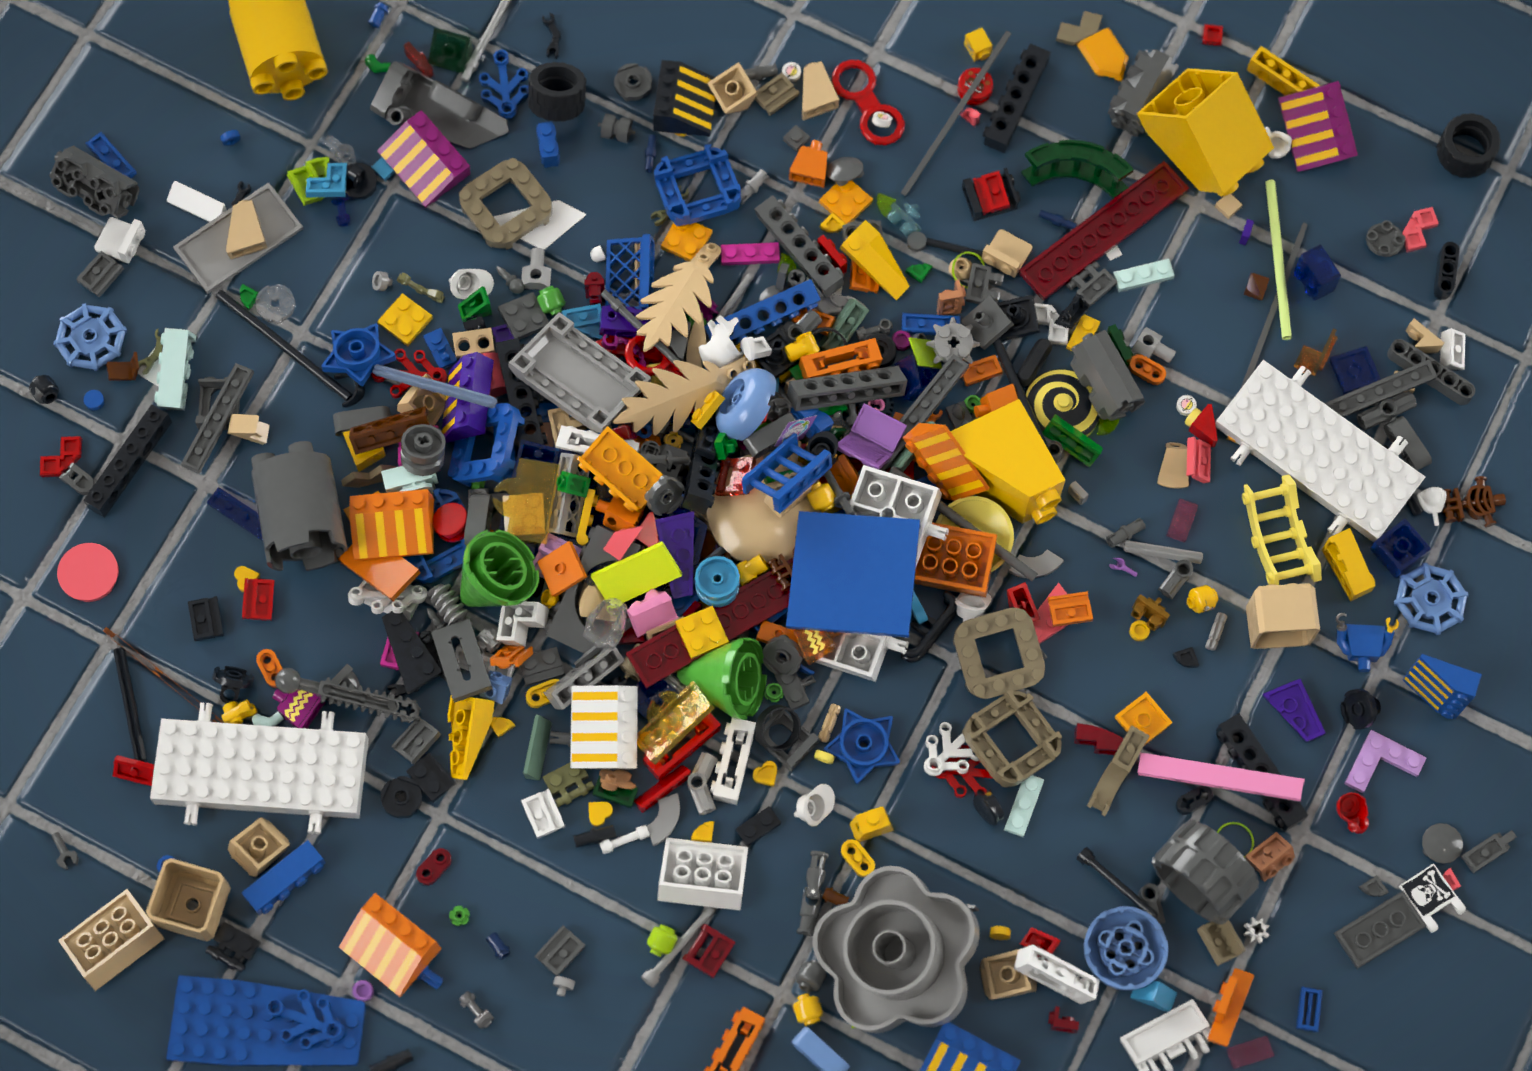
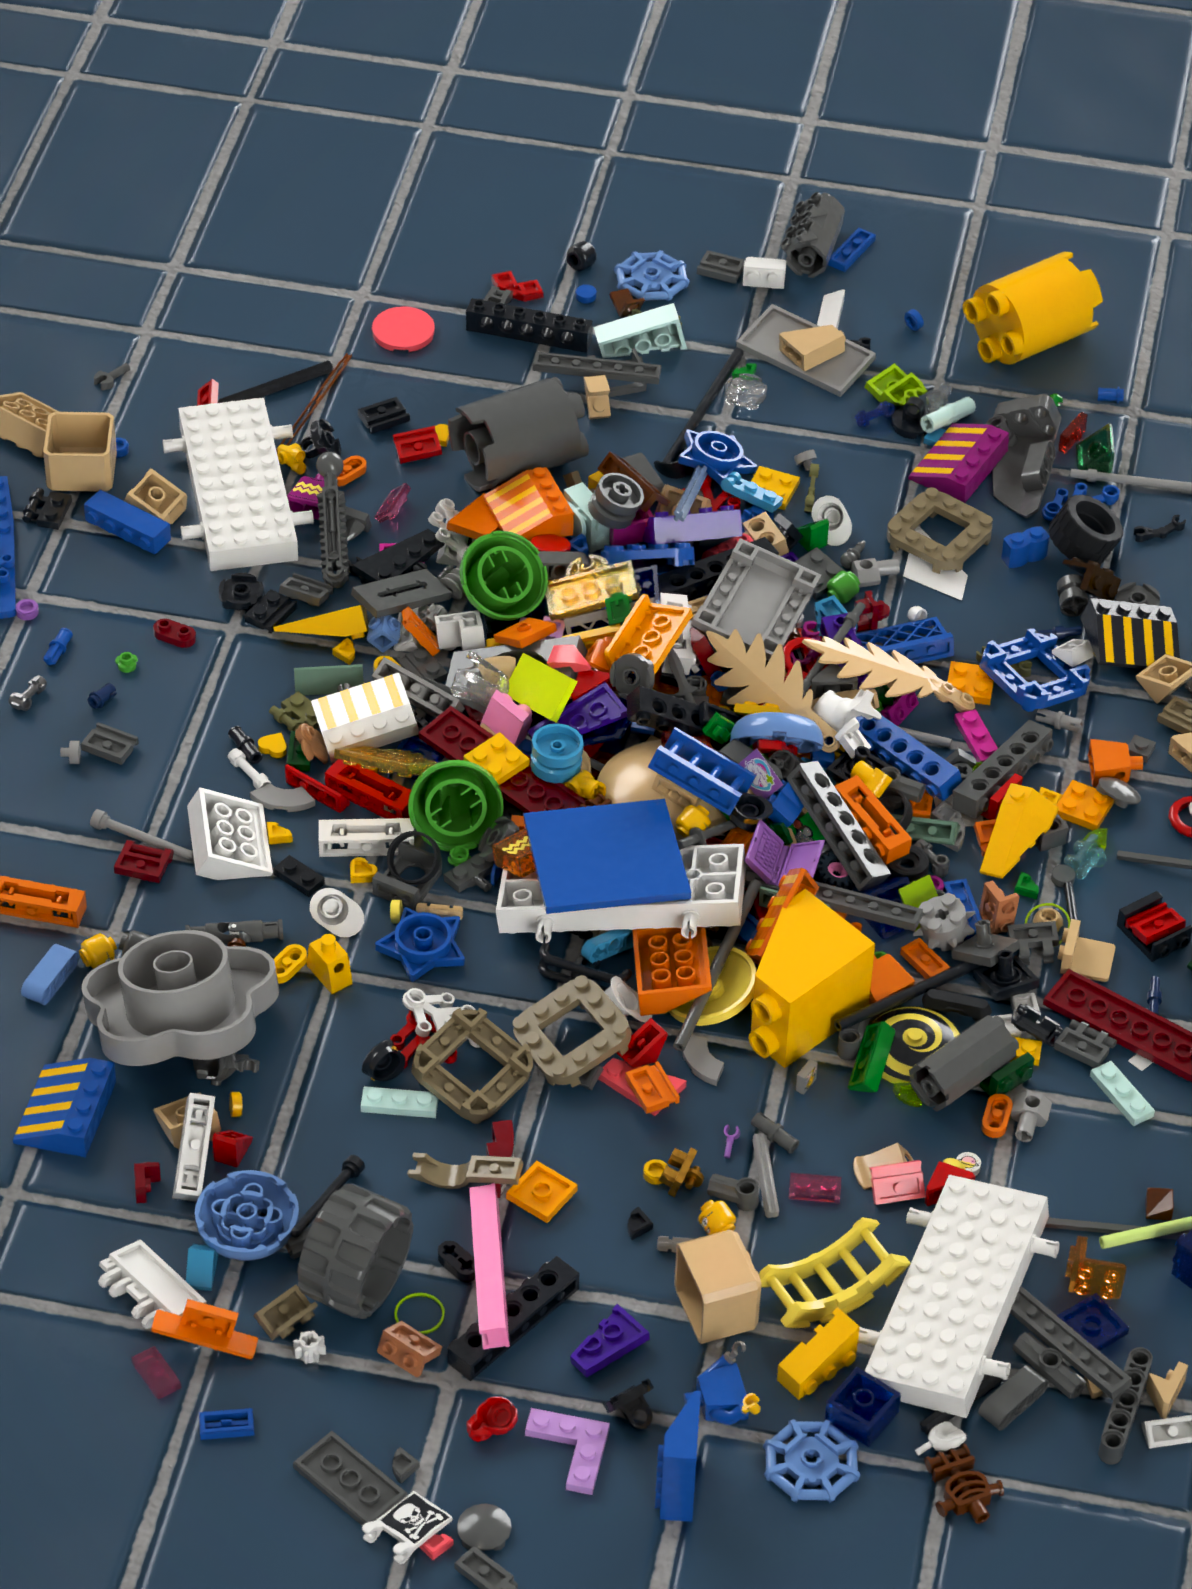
camera: 75 degrees right, 25 degrees down
(260, 720) = (289, 478): light aqua arm -> none
(328, 639) = (394, 500): none -> clear pink plate
(332, 186) = (889, 390): dark azure plate -> none
(367, 150) = (948, 414): none -> light aqua axle
(388, 945) = (81, 611): orange slope -> none
(417, 337) = (751, 492): none -> dark azure plate
(542, 813) = (256, 699): white plate -> none
(607, 98) = (1096, 581): none -> dark brown bracket
(662, 940) = (144, 817): lime head -> none
(680, 150) = (1074, 652): none -> white slope
(702, 772) = (329, 809): light grey piece -> none

